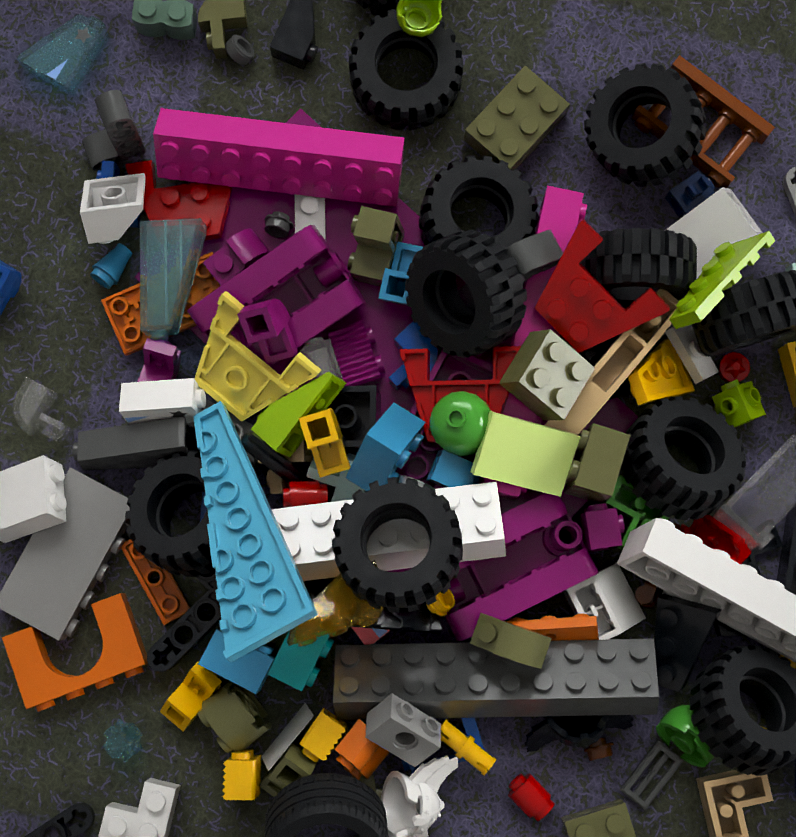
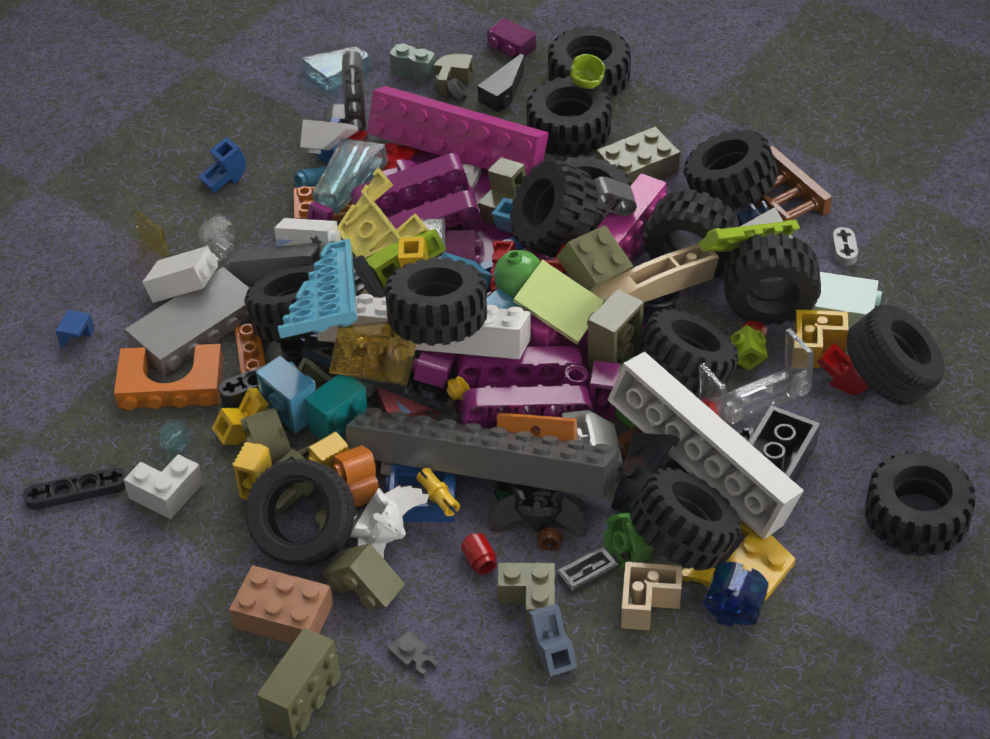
camera: 20 degrees right, 35 degrees down
(269, 326) = (404, 193): magenta brick -> none
(403, 730) = (379, 448): light grey brick -> none
(510, 641) = (505, 407): olive brick -> none
(582, 307) = (640, 232): red wing -> none
(660, 376) = (677, 299): yellow wing -> none
(688, 350) = (722, 314): white plate -> none

